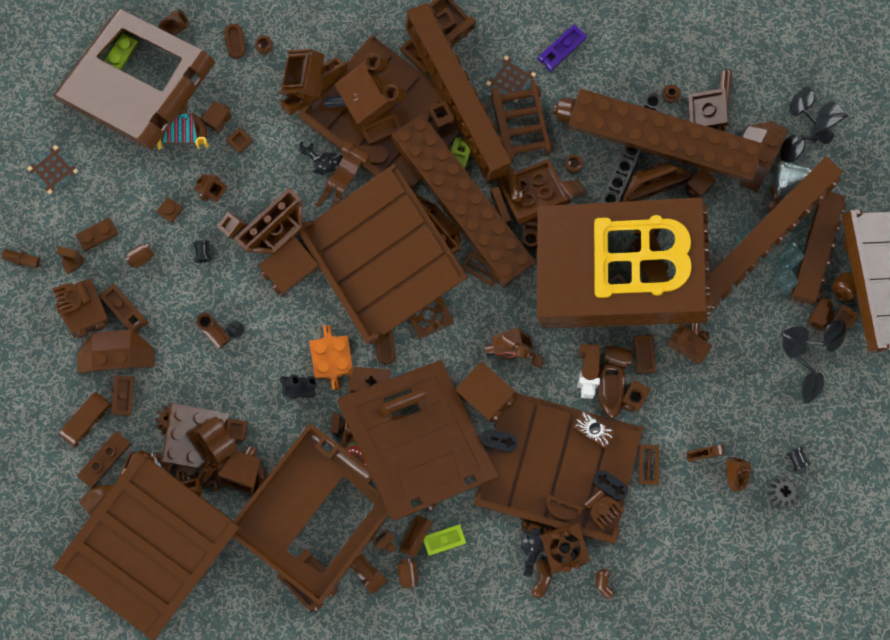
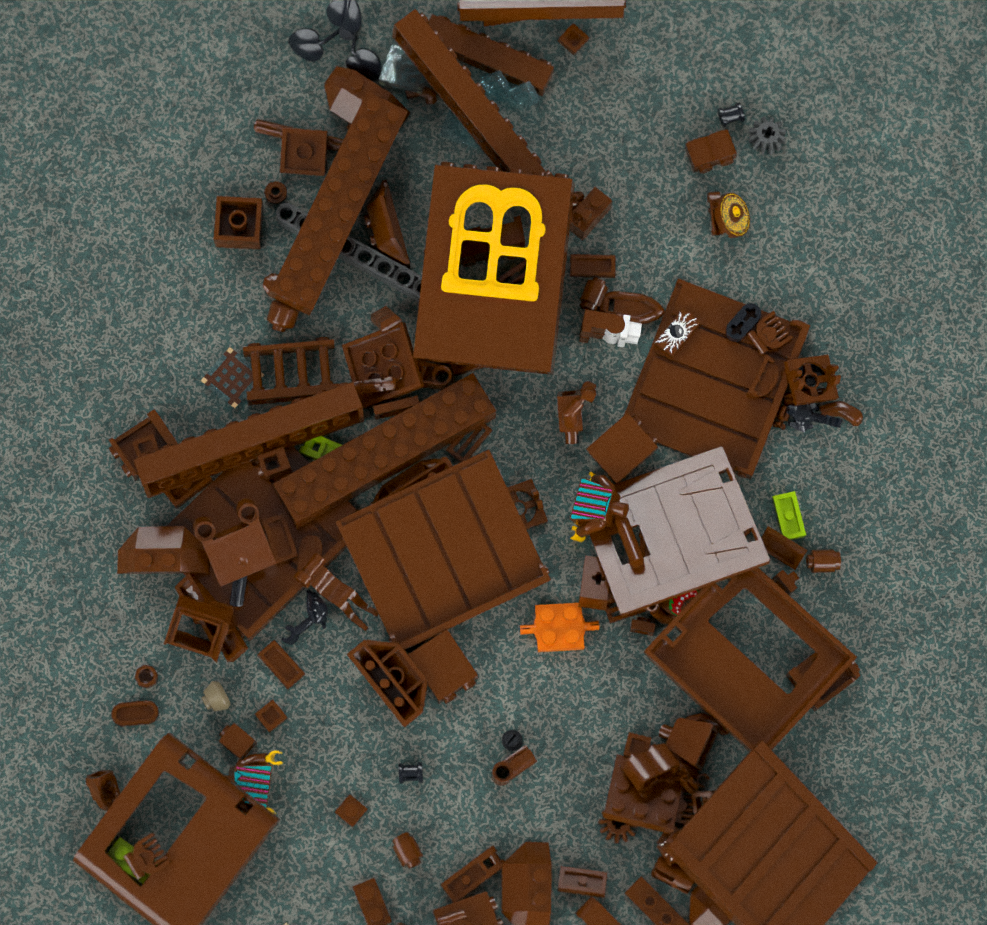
camera: 90 degrees left, 0 degrees up
(114, 54) = (143, 859): none -> reddish brown piece
(209, 187) = (331, 755): reddish brown brick -> none
(232, 225) = (386, 728): reddish brown brick -> none
(250, 97) = (215, 697): none -> dark tan cone
(282, 144) = (281, 664): none -> reddish brown tile
(298, 386) = (593, 665): black hips -> none
(360, 38) = (162, 552): none -> reddish brown wedge
(370, 576) = (824, 603): reddish brown piece -> none
(386, 349) = (557, 562): reddish brown tile -> none
(432, 372) = (595, 506): none -> reddish brown torso
(498, 445) = (685, 442): black beam -> none
(562, 47) = (199, 311): dark purple plate -> none
(573, 164) = (351, 316): reddish brown tile -> none
(602, 583) = (852, 347): reddish brown arm -> none
(639, 389) = (642, 272): reddish brown brick -> none
(640, 65) = (238, 222): none -> reddish brown brick
(648, 465) = (705, 267): reddish brown tile -> none
(699, 184) = (396, 174): reddish brown brick -> none
(705, 466) = (732, 215): none -> tile
(737, 473) = (741, 182): reddish brown rock -> none
(762, 444) = (711, 151): none -> reddish brown brick
(795, 344) = (602, 92): black plant -> none
(822, 314) = (567, 63): reddish brown rock -> none
(844, 286) = (537, 32): reddish brown head -> none

